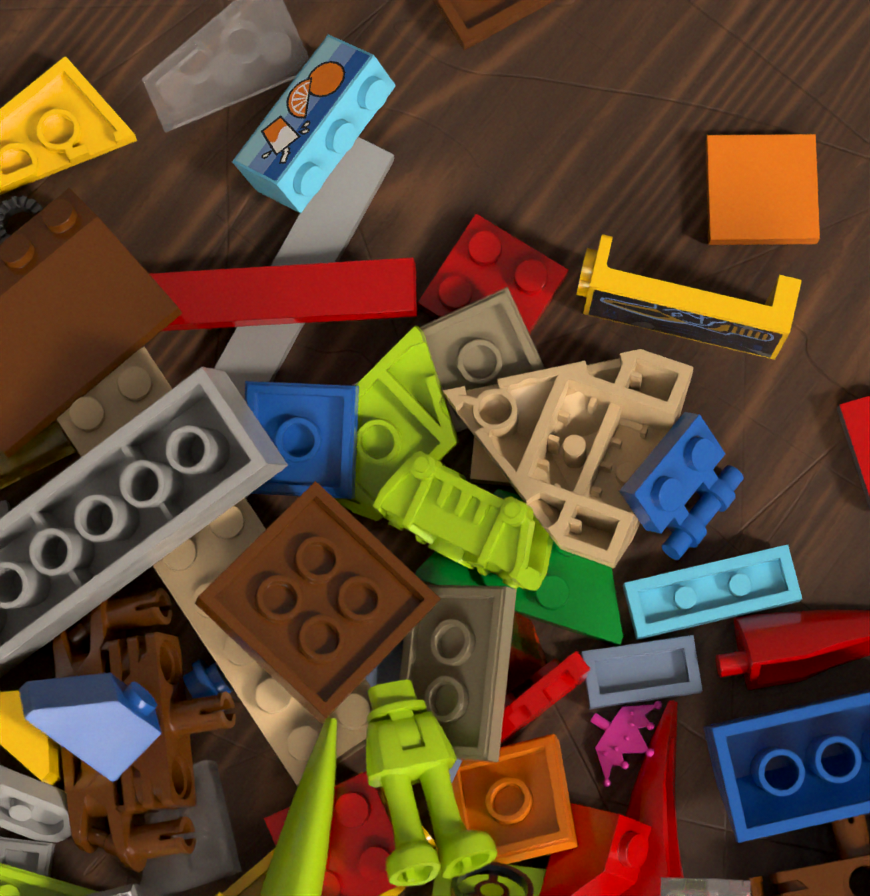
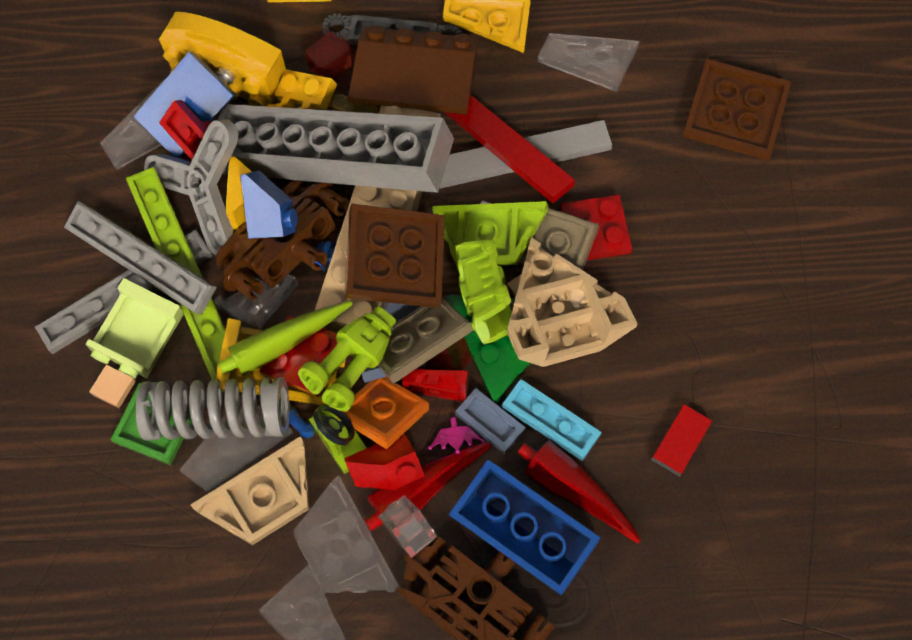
camera: 50 degrees right, 10 degrees down
(312, 431) = (462, 201): blue tile -> none
(314, 123) = (594, 103): brick -> none
(671, 475) = (584, 356): blue plate -> none
(687, 310) = (660, 305): panel -> none
(762, 189) = (744, 297): orange tile -> none

